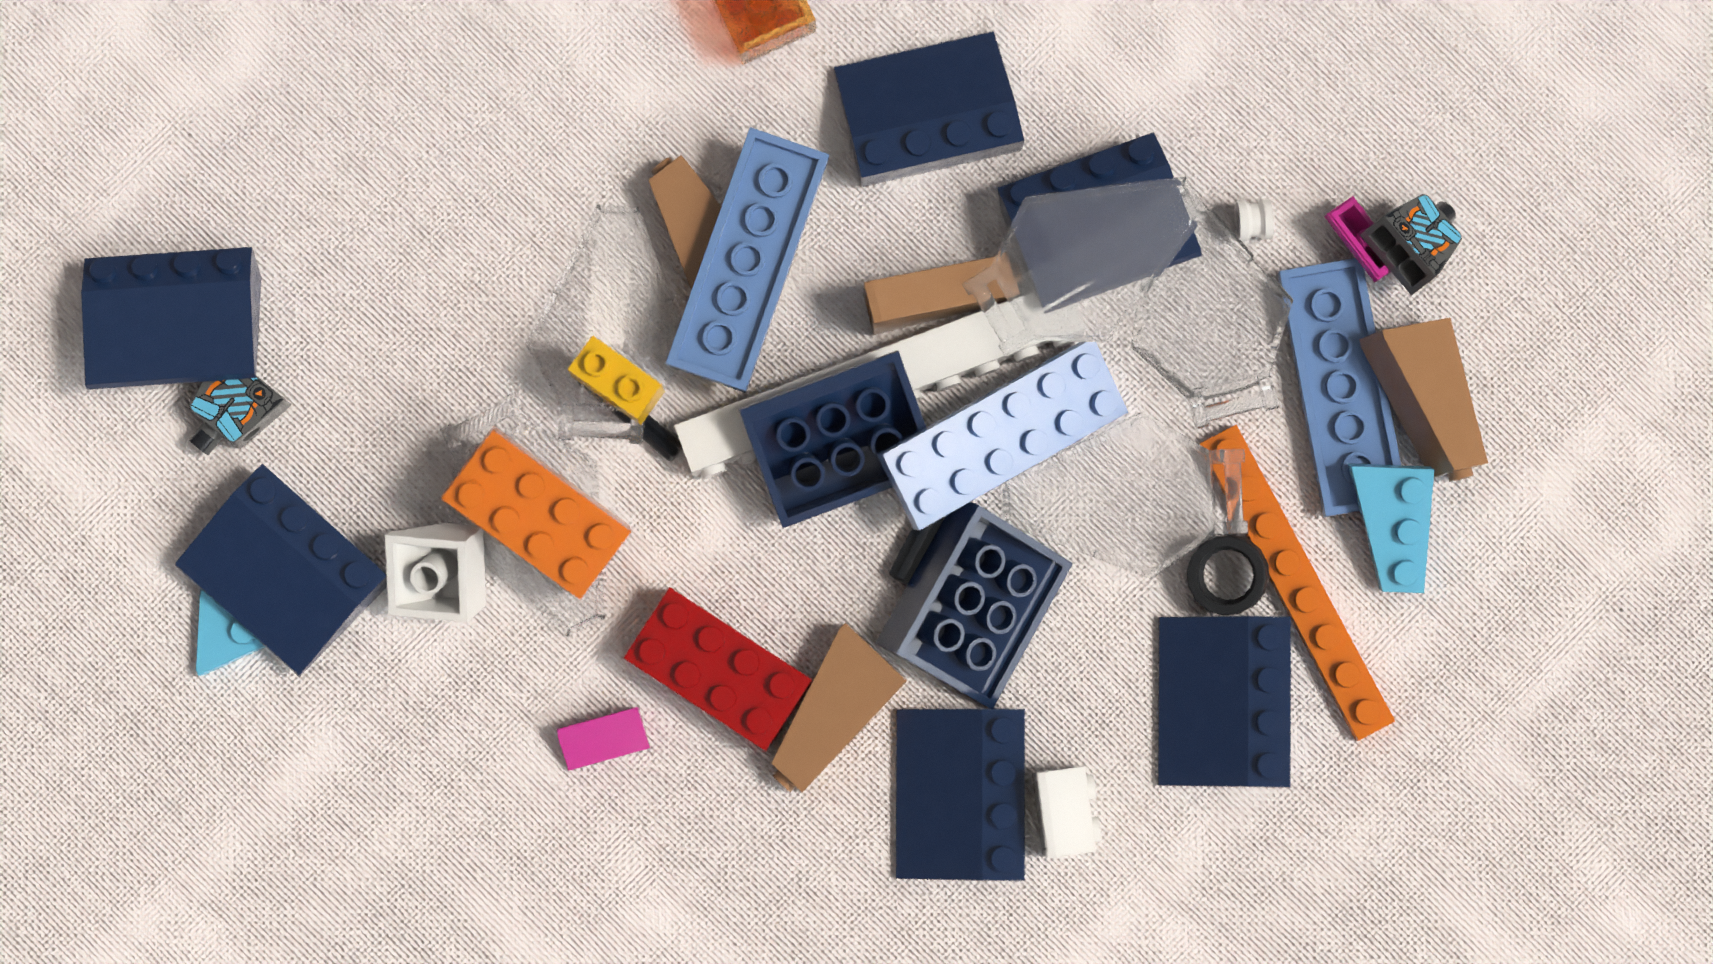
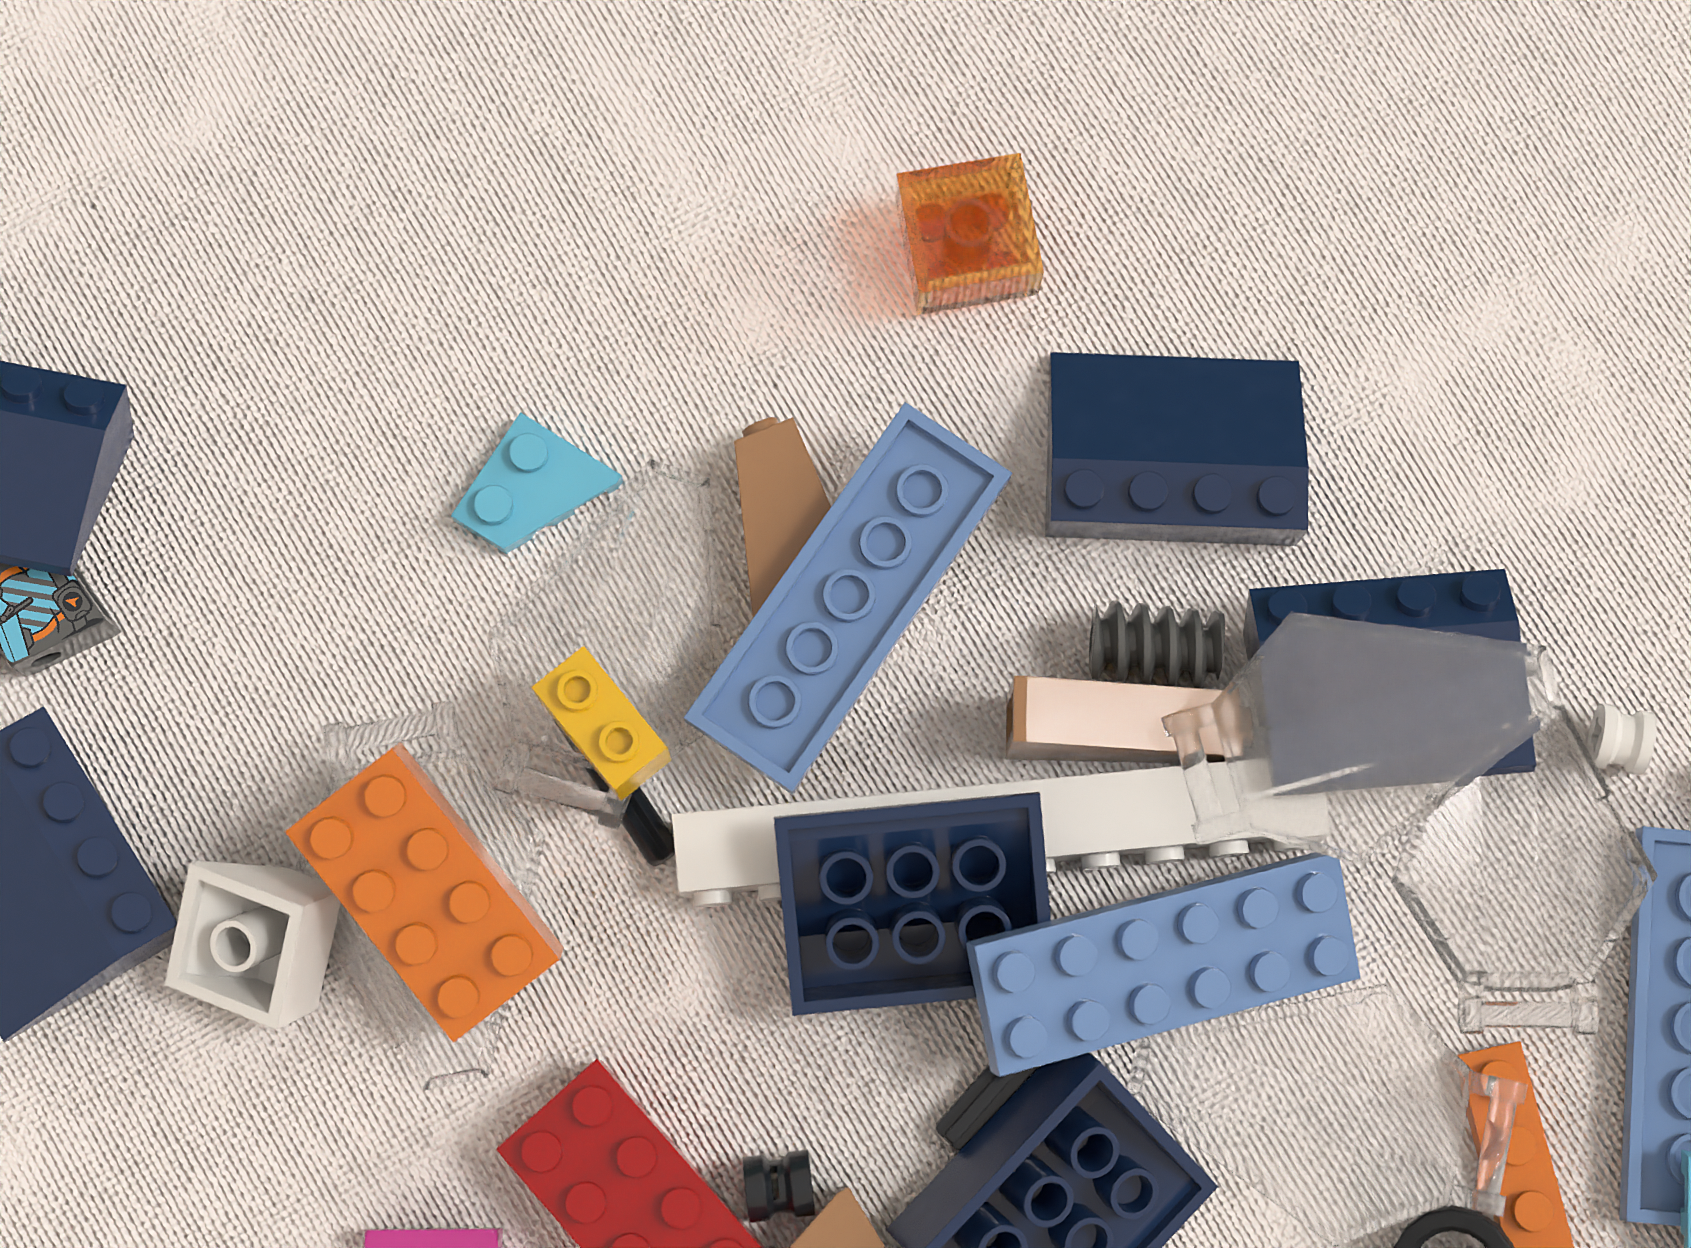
camera: 15 degrees right, 5 degrees down
(525, 242) = (530, 485): none -> medium azure wing
(811, 631) = (793, 1184): none -> black wheel
(948, 238) = (1156, 644): none -> dark grey piece

